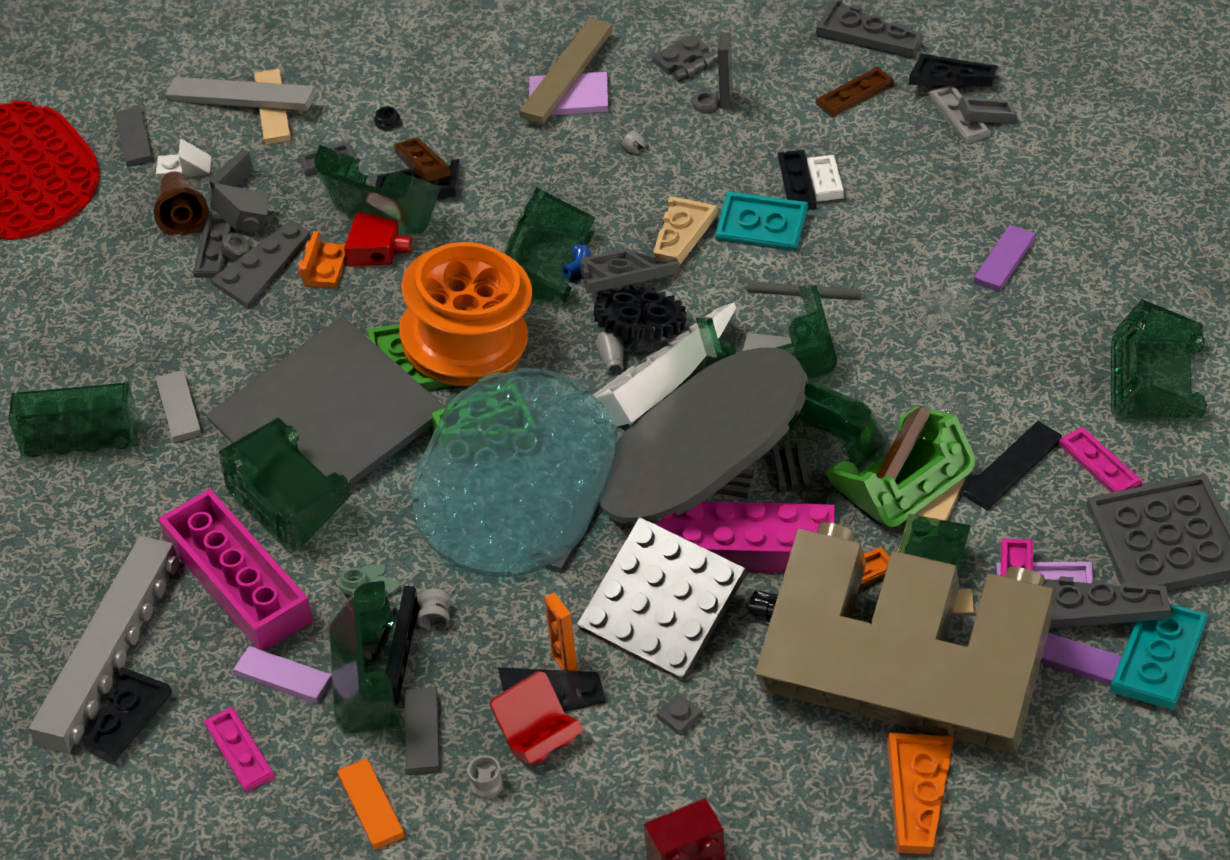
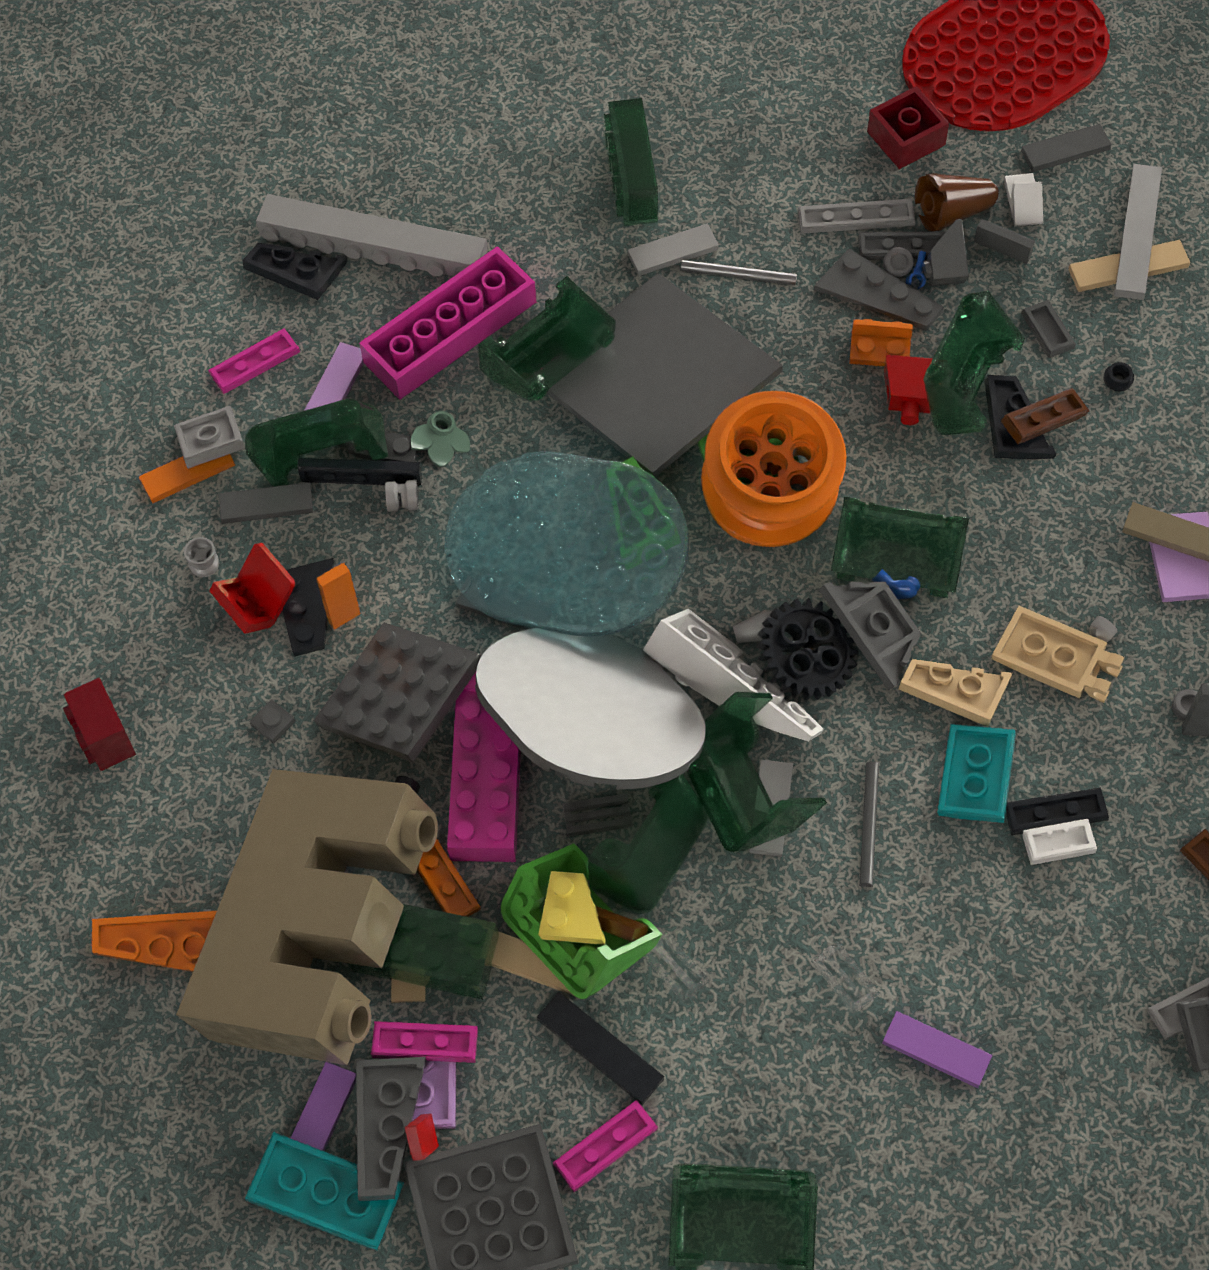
camera: 85 degrees right, 15 degrees up
(87, 227) = (907, 127): none -> dark red brick
(172, 276) = (856, 216): none -> light grey tile
(216, 360) = (739, 272): none -> flat silver bar
(254, 238) = (918, 271): none -> blue hand
(334, 778) = (209, 436): none -> light grey tile
(654, 170) = (1057, 655): none -> tan tile
(901, 453) = (570, 911): none -> light yellow wing
(1112, 575) = (421, 1137): none -> red tile

